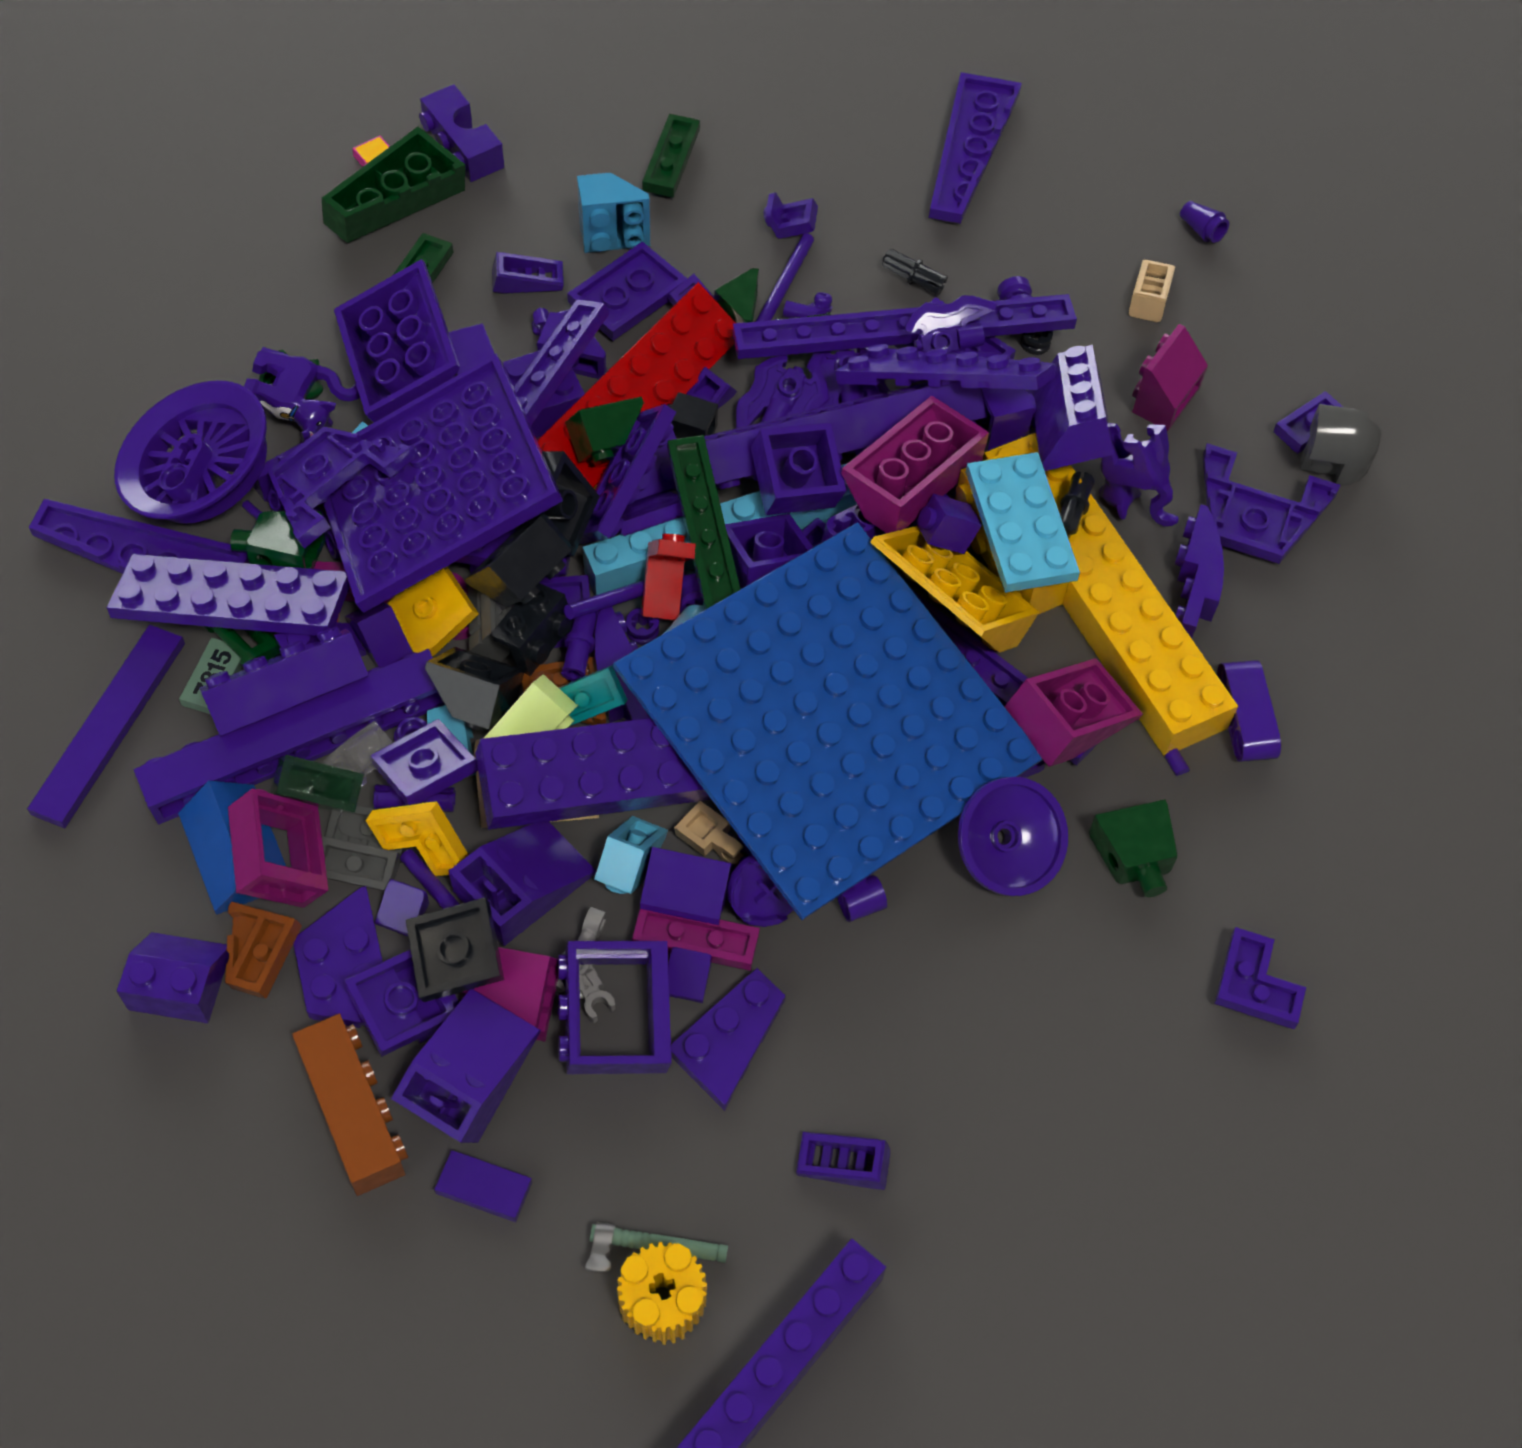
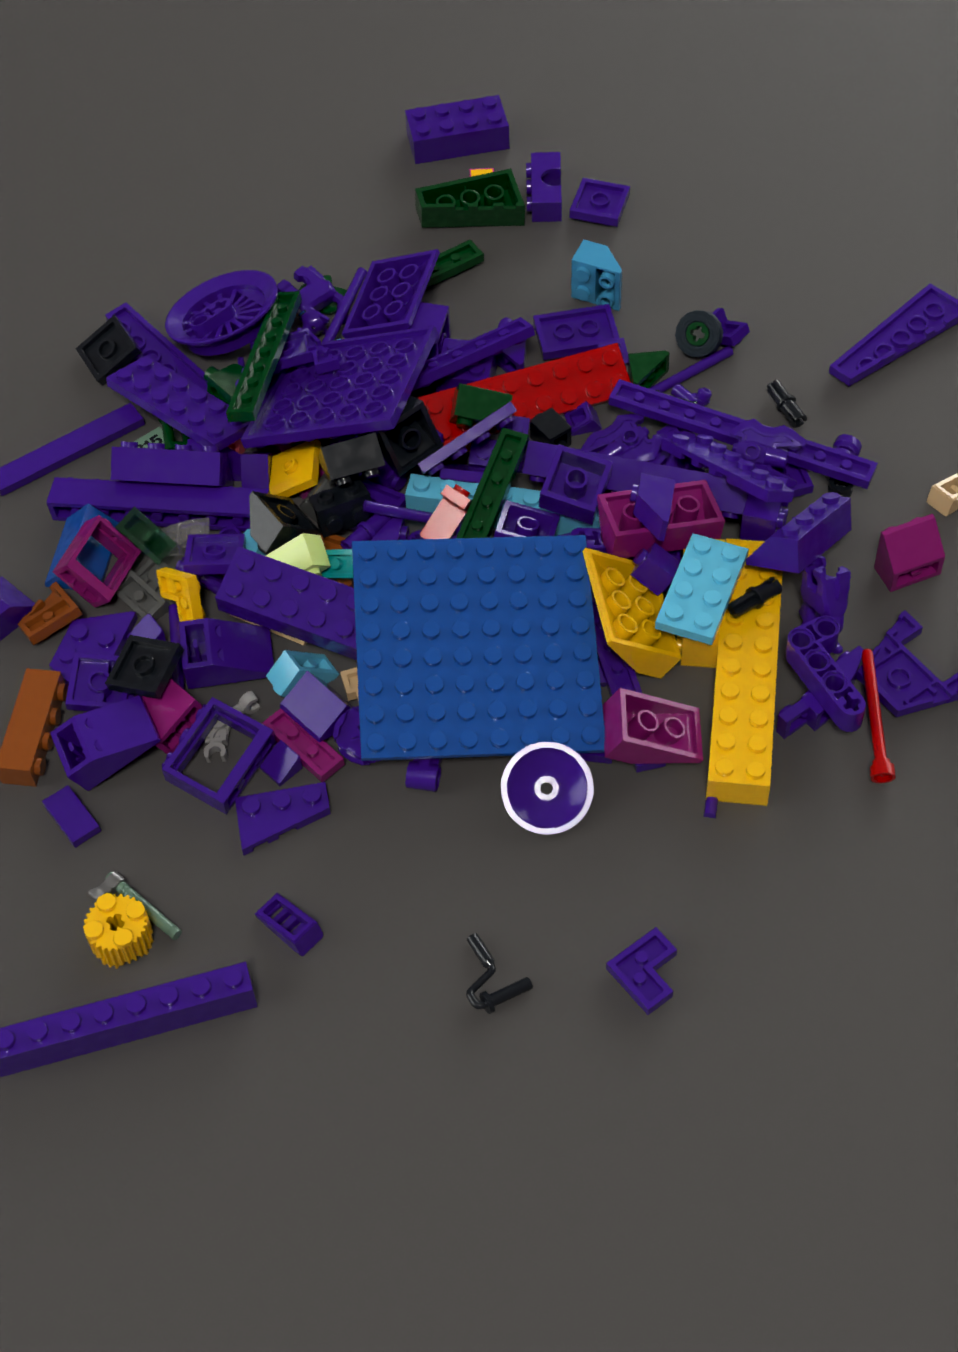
camera: 40 degrees right, 5 degrees down
(71, 571) = (108, 349): none -> black plate
(303, 105) = (457, 129): none -> dark purple brick
(315, 490) = (263, 358): none -> dark green plate
(341, 377) = (345, 305): none -> dark purple bar
(508, 275) = (506, 290): dark purple slope -> none
(536, 126) = (599, 202): none -> dark purple plate
(671, 155) = (676, 257): dark green plate -> none
(782, 220) = (710, 326): none -> black bush
(918, 450) = (653, 503): none -> dark purple slope
(1125, 1117) = (488, 1001): none -> black piece
(1137, 844) = (634, 841): dark green torso -> none
(1201, 555) = (810, 648): none -> dark purple beam
(1254, 725) = (785, 798): dark purple beam -> none
(1311, 625) = (881, 769): none -> red piece

